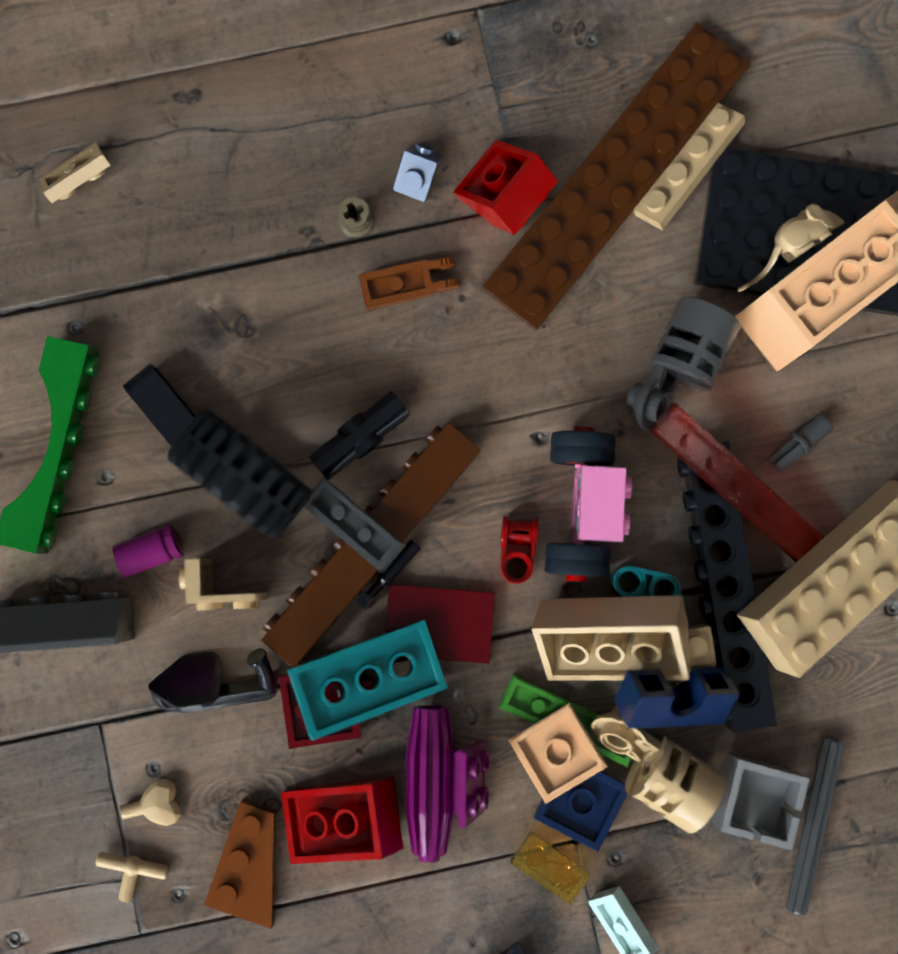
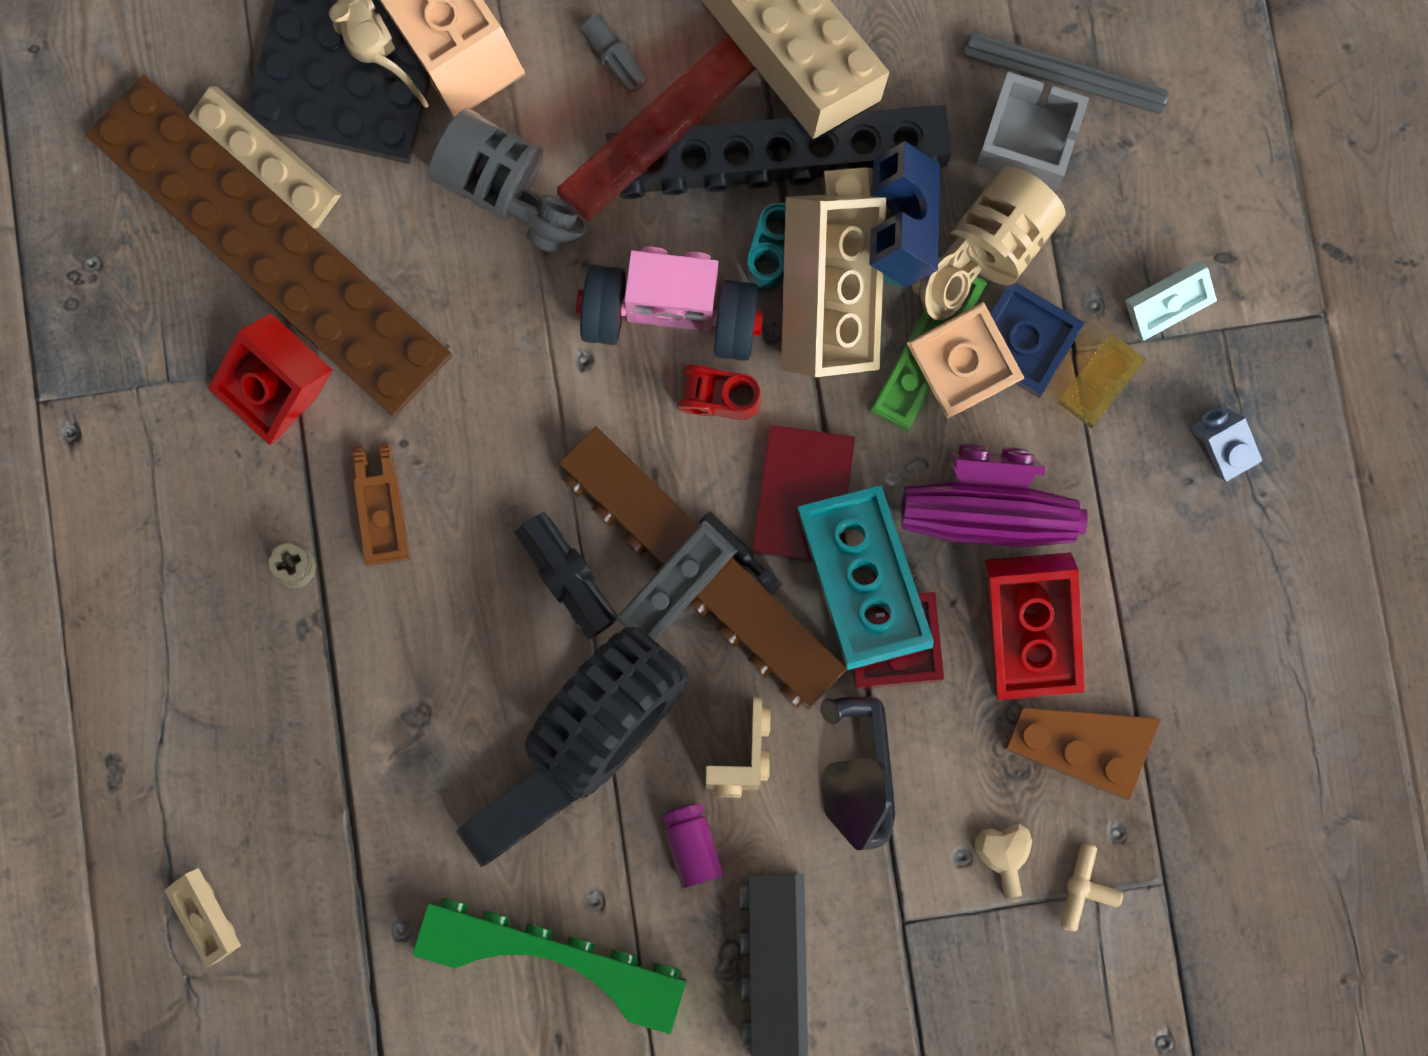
camera: 85 degrees left, 5 degrees down
(417, 171) = (240, 484): bracket -> none

